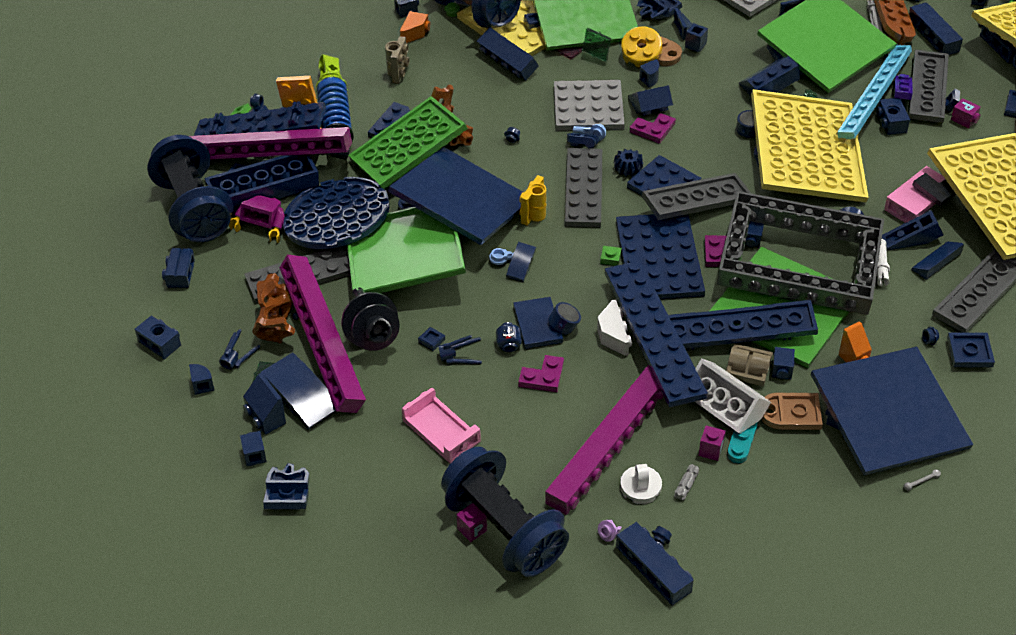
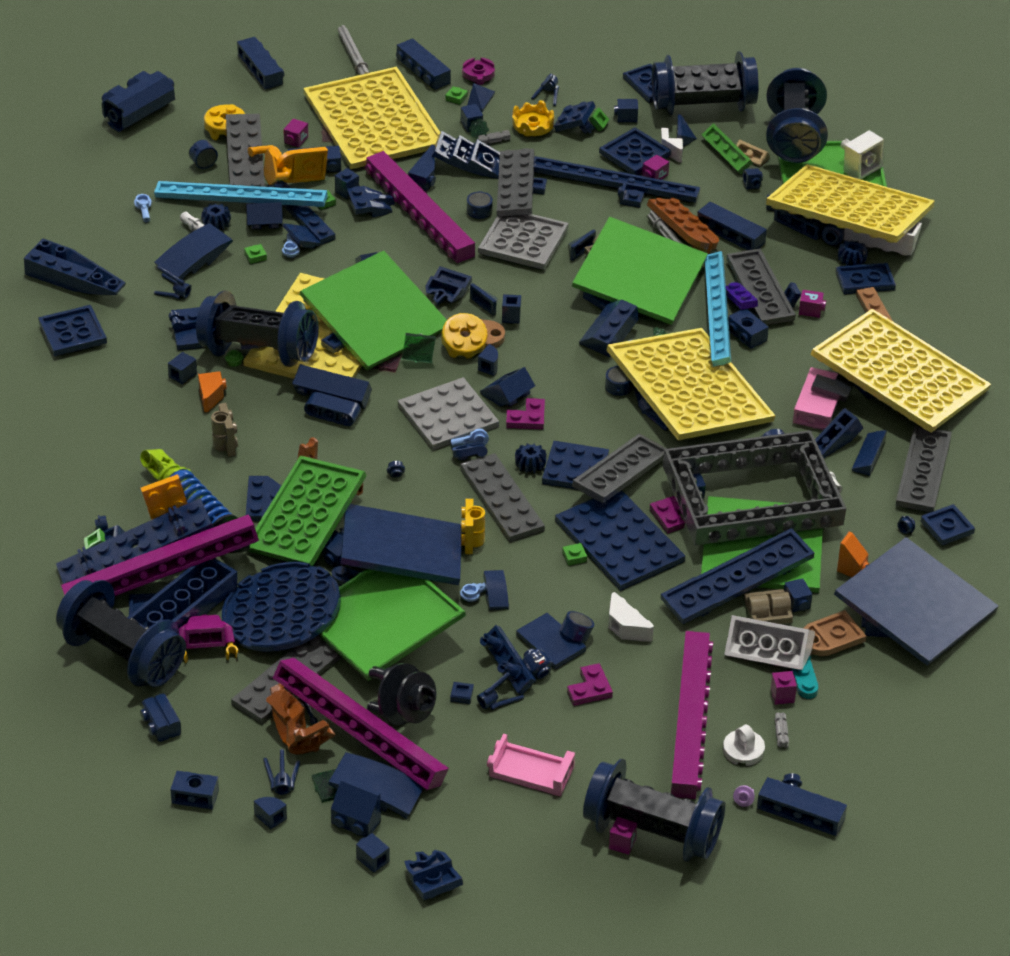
camera: 30 degrees left, 5 degrees down
(488, 324) = (508, 659): none -> dark blue plate
(496, 71) = (332, 409): none -> dark blue beam
(655, 334) = (671, 608): dark blue plate -> none
(935, 474) = (981, 643): light grey hinge -> none

